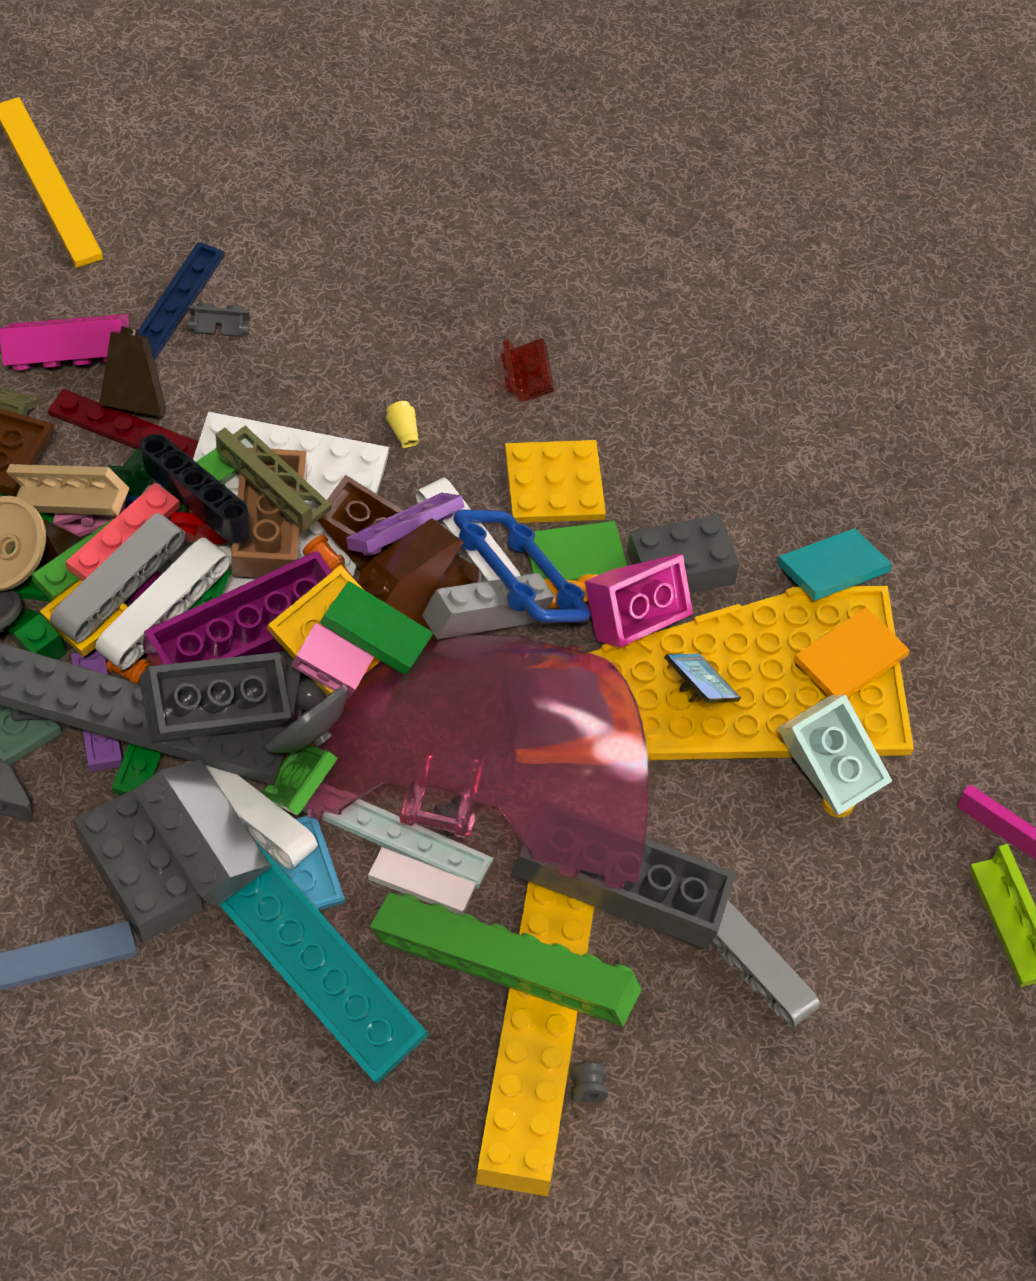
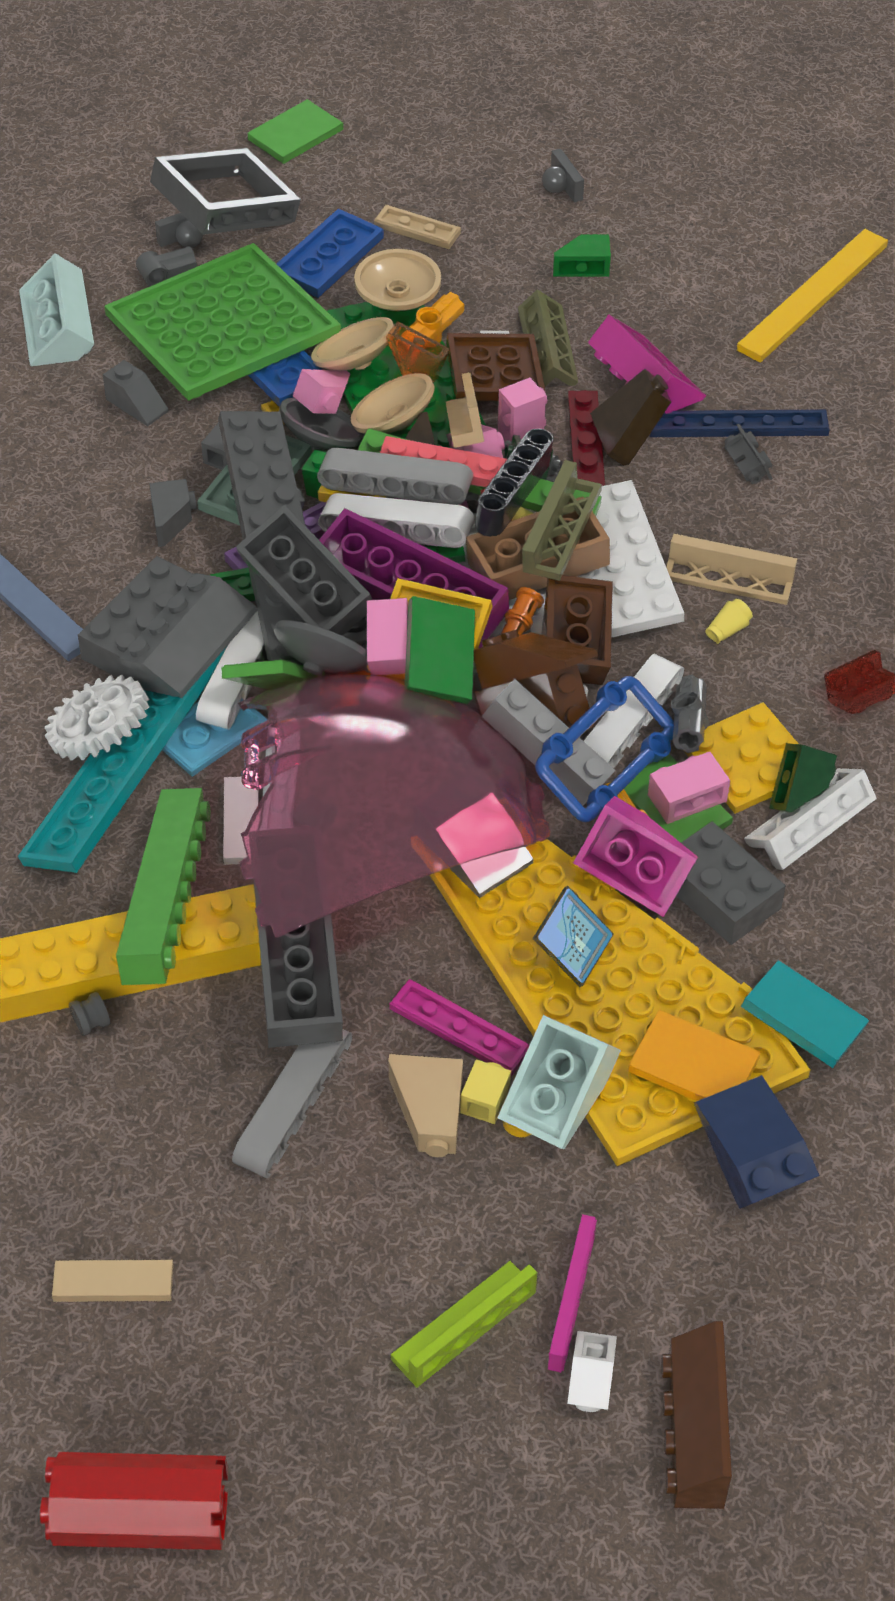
camera: 70 degrees right, 5 degrees down
(70, 443) = (521, 409): none -> bright pink brick
(264, 922) = (96, 717): none -> white gear
(340, 387) = (731, 563): none -> tan fence
(399, 525) = (547, 621): medium lavender plate -> none
(514, 499) = (689, 714): none -> dark grey piece
(579, 532) = (688, 787): none -> bright pink brick
(609, 455) = (801, 776): none -> dark green slope
(649, 466) = (793, 835): none -> white fence
(729, 806) = (459, 1026): none -> dark pink tile
(801, 856) = (429, 1099): none -> tan slope
(808, 811) = (485, 1091): none -> light yellow brick
(869, 1166) = (112, 1280): none -> tan tile
(948, 649) = (755, 1141): none -> dark blue slope

